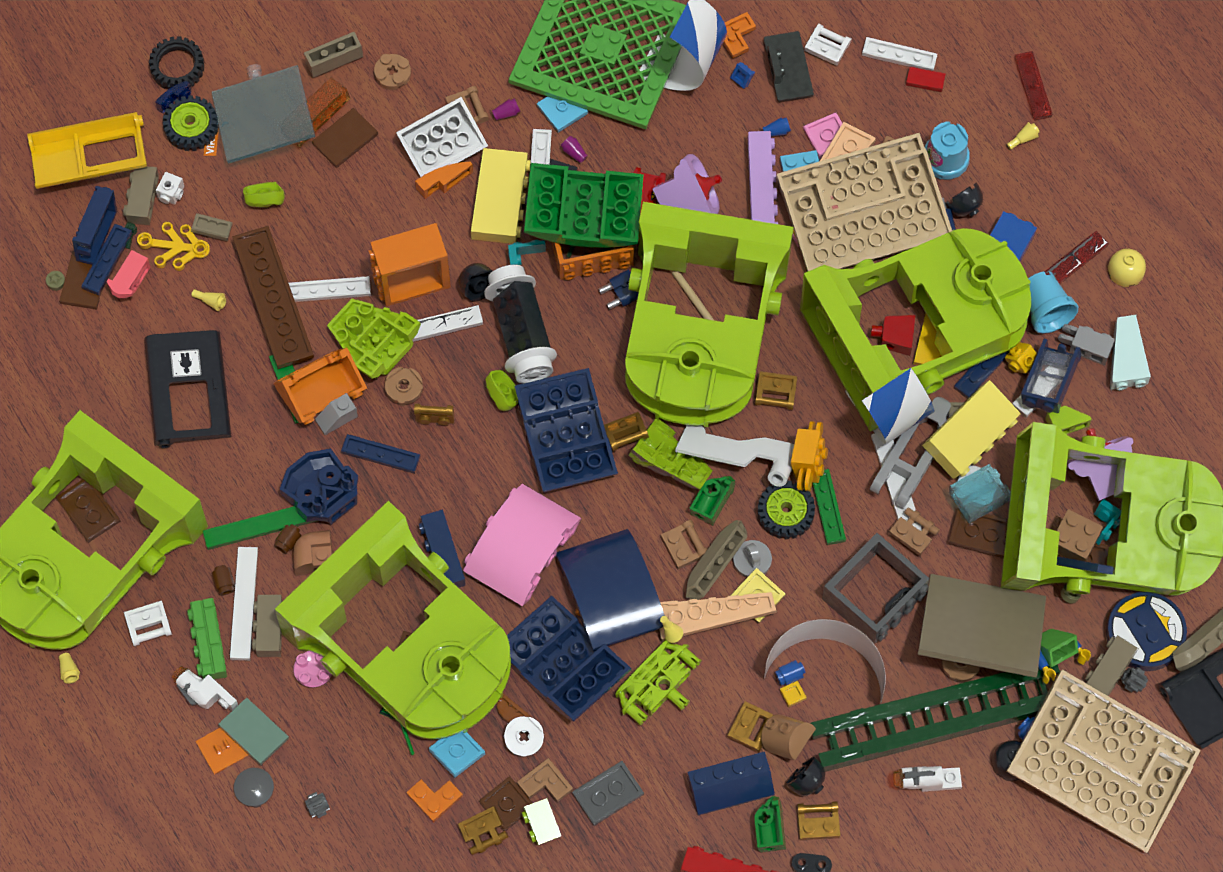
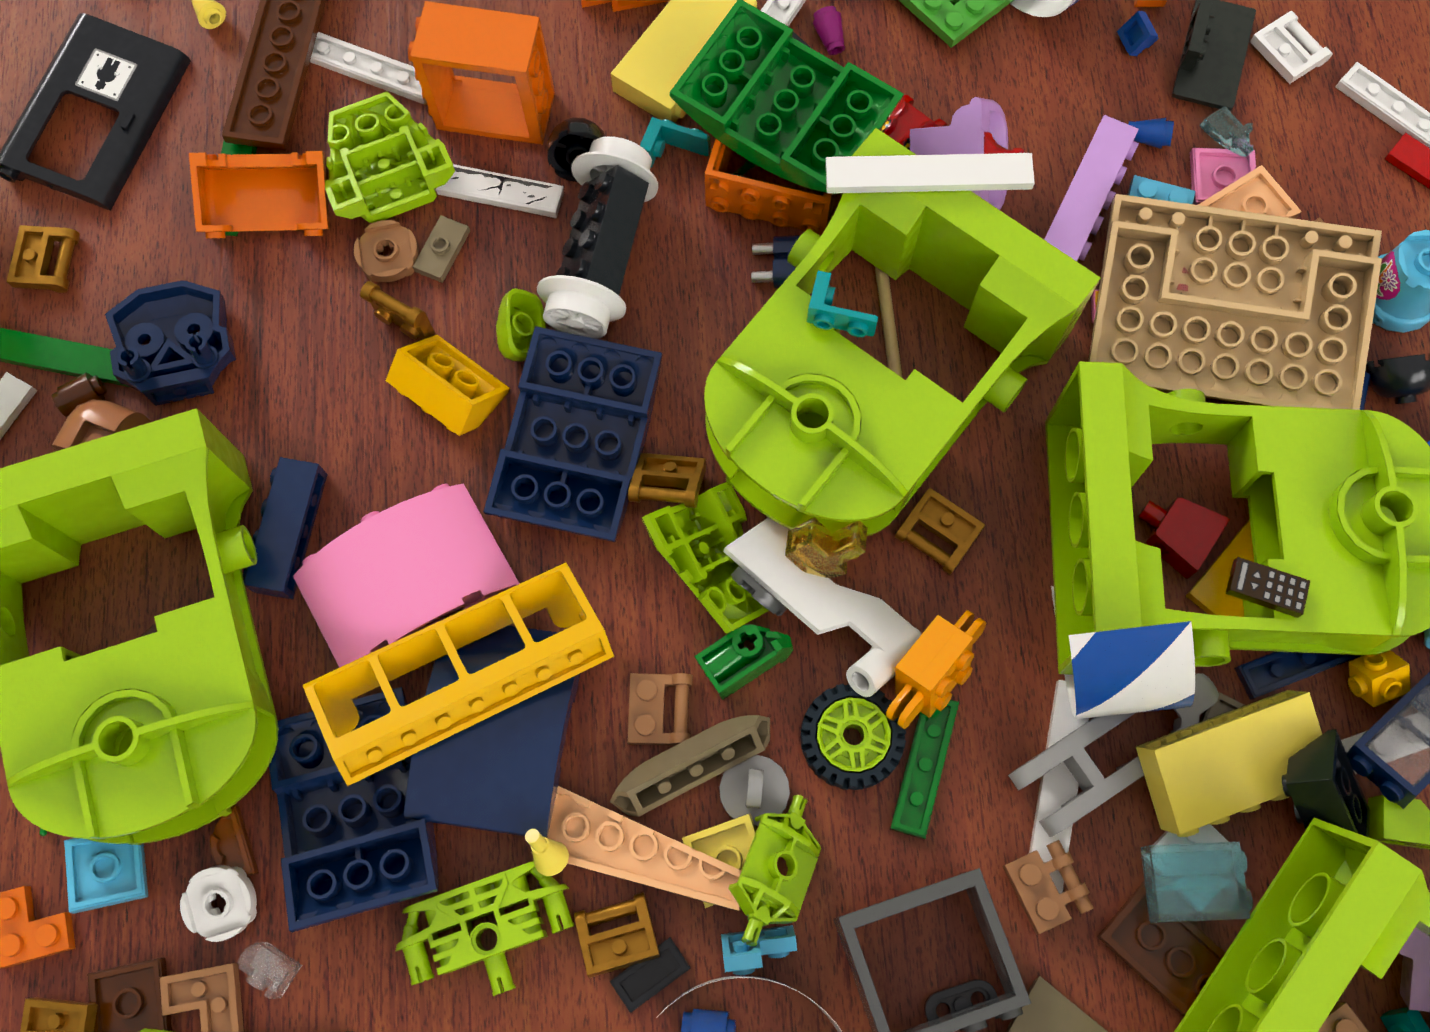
camera: 30 degrees right, 5 degrees up
(210, 482) = (33, 256): none -> pearl gold plate
(336, 414) = (268, 246): light grey slope -> none
(380, 453) = (295, 335): dark blue tile -> none
(431, 370) = (441, 249): none -> dark tan plate
(481, 439) = (446, 384): none -> yellow slope
(565, 752) = (268, 968): none -> clear brick
(597, 573) = (473, 695): none -> yellow window
(669, 309) = (826, 316): none -> teal bracket
(682, 213) = (929, 173): none -> white tile
(704, 462) = (758, 592): none -> dark grey tile
(725, 428) = (825, 555): none -> clear yellow brick
(727, 658) = (618, 946): none -> pearl gold plate
(749, 665) = (648, 978): none -> black tile
(784, 595) = (761, 889): none -> lime plate
(800, 618) = (744, 959): none -> medium azure plate
(818, 108) = (1228, 131): none -> clear light blue slope
(943, 338) = (1268, 587): none -> dark brown tile
(1014, 416) = (1326, 786): none -> black slope

